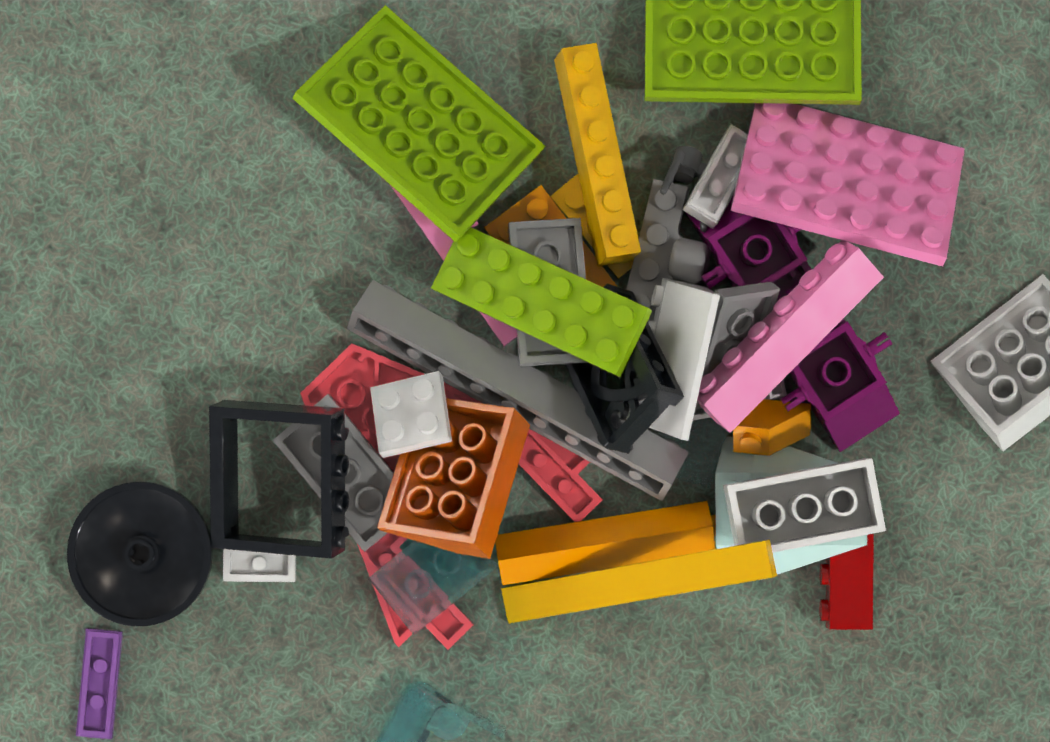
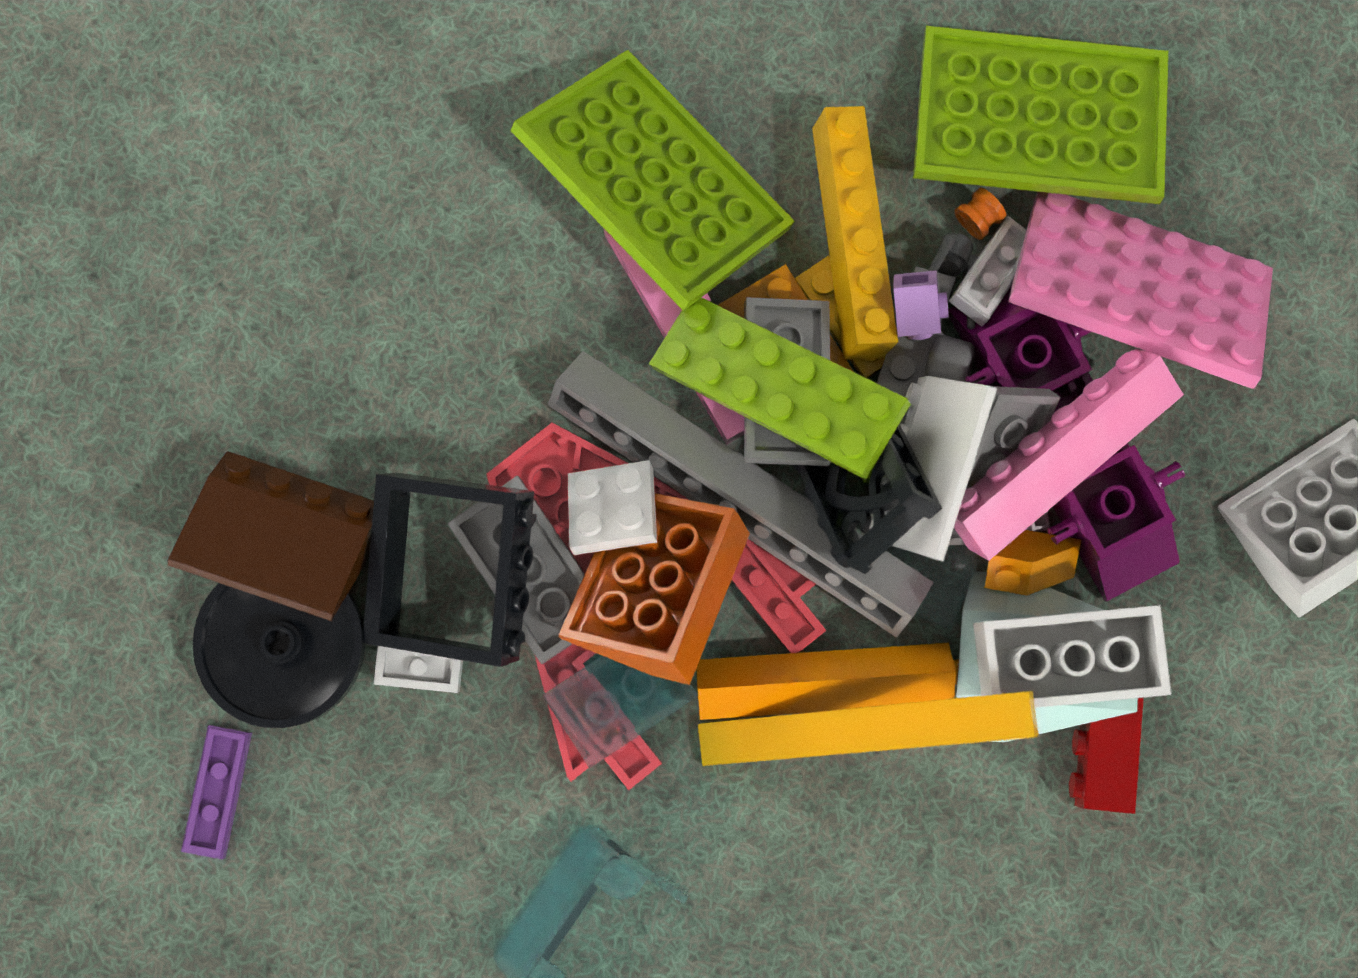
camera: 10 degrees right, 5 degrees down
(130, 464) = (276, 535): none -> reddish brown slope
(655, 217) = (919, 304): none -> lavender brick
(706, 124) = (980, 213): none -> orange wheel

